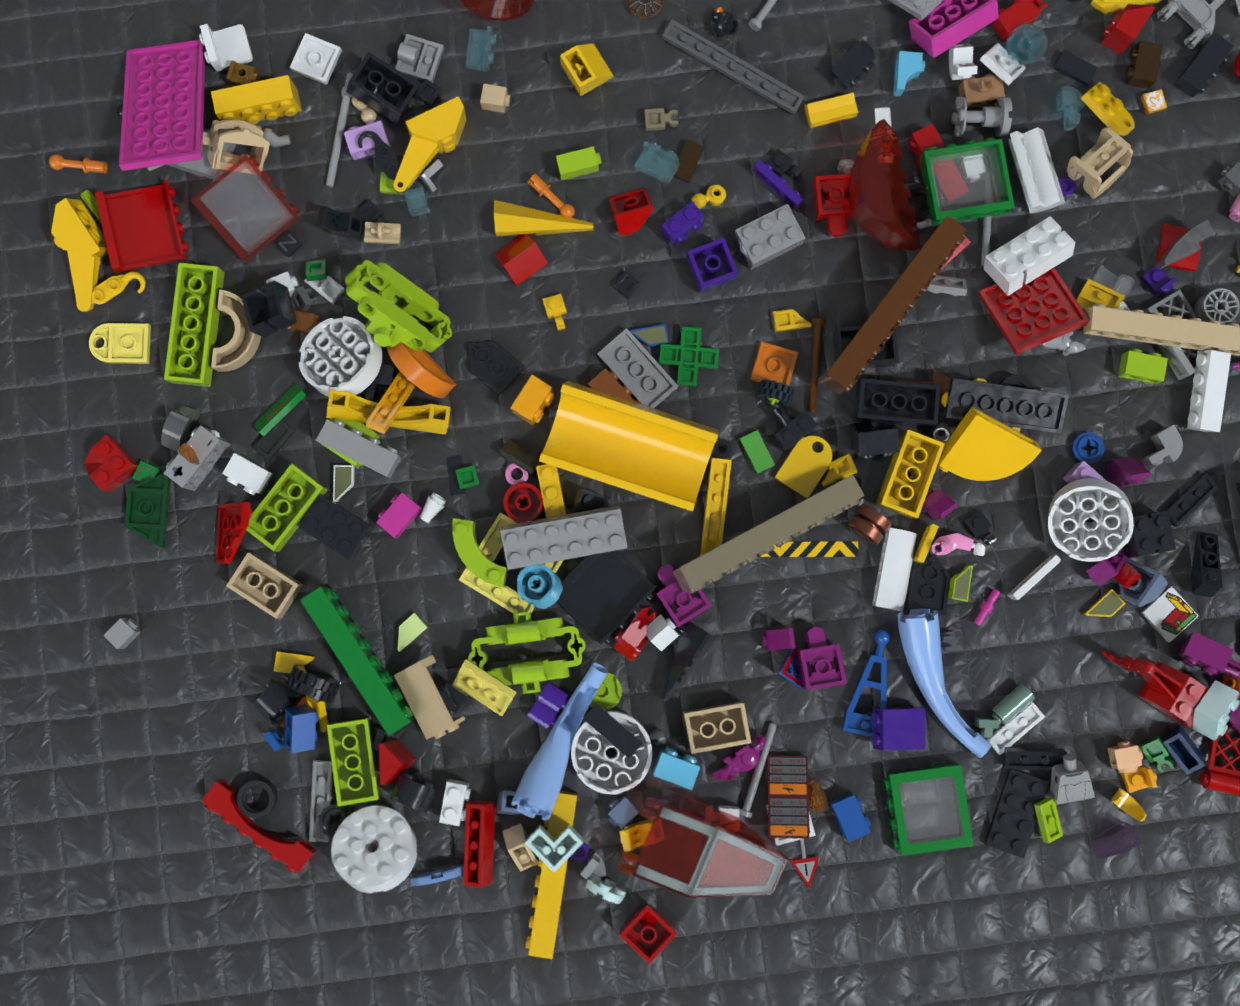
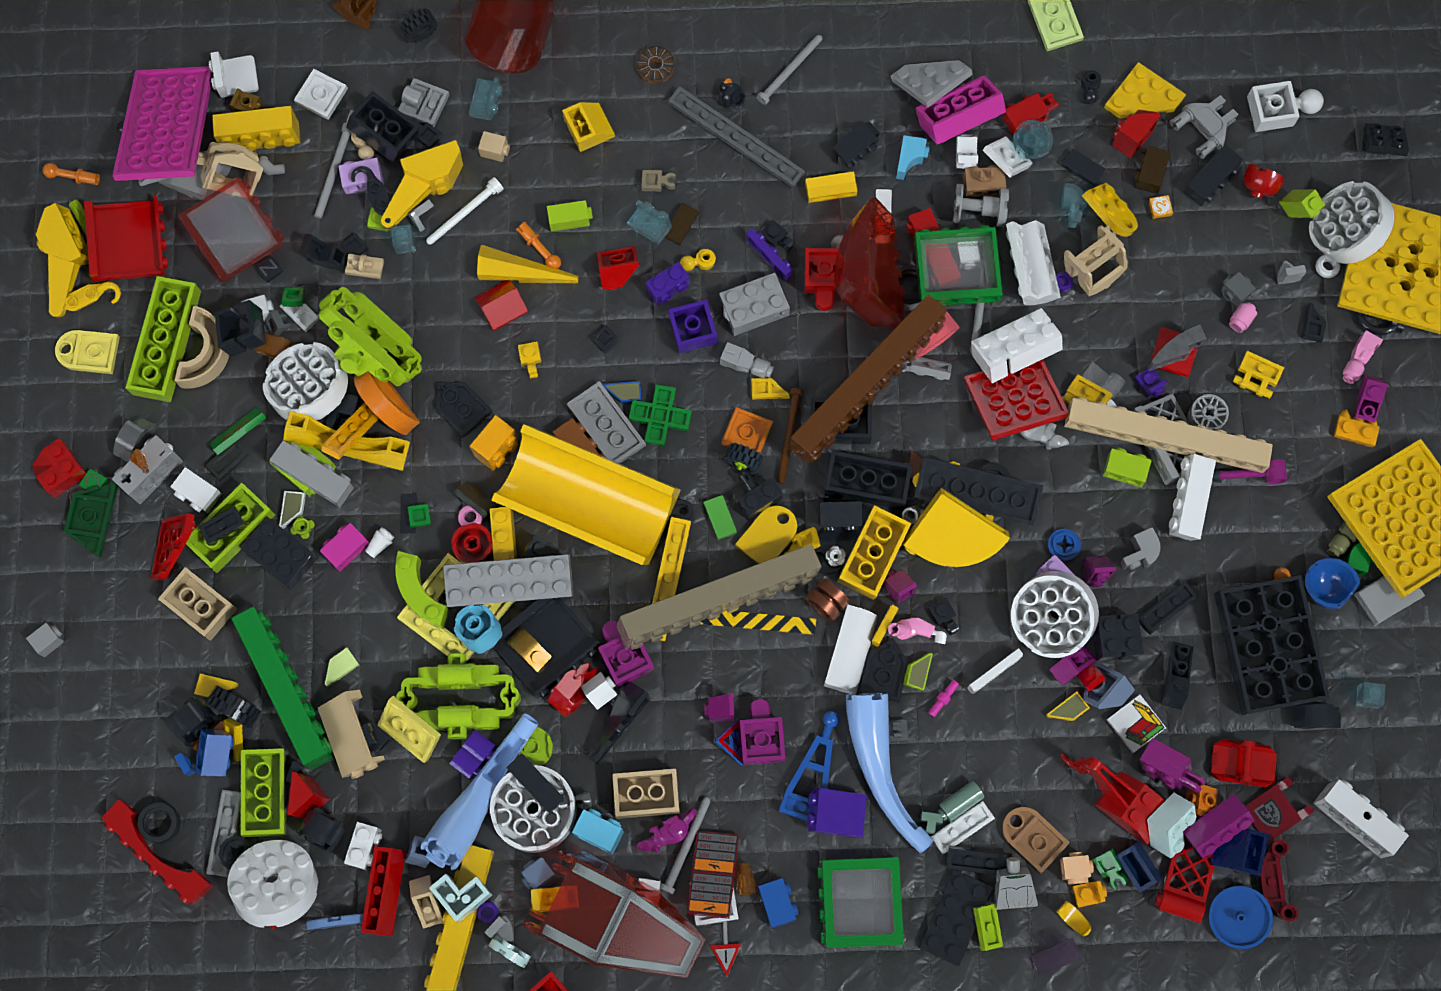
camera: 10 degrees right, 10 degrees down
(278, 509) = (222, 525): none -> black plate
(352, 493) = (300, 521): none -> lime plate
(499, 140) = (493, 187): none -> white piece
(588, 598) = (529, 649): none -> pearl gold brick
(763, 294) = (744, 361): none -> light grey piece
(872, 475) = (835, 561): none -> white plate
(1082, 731) = (1034, 839): none -> medium nougat tile

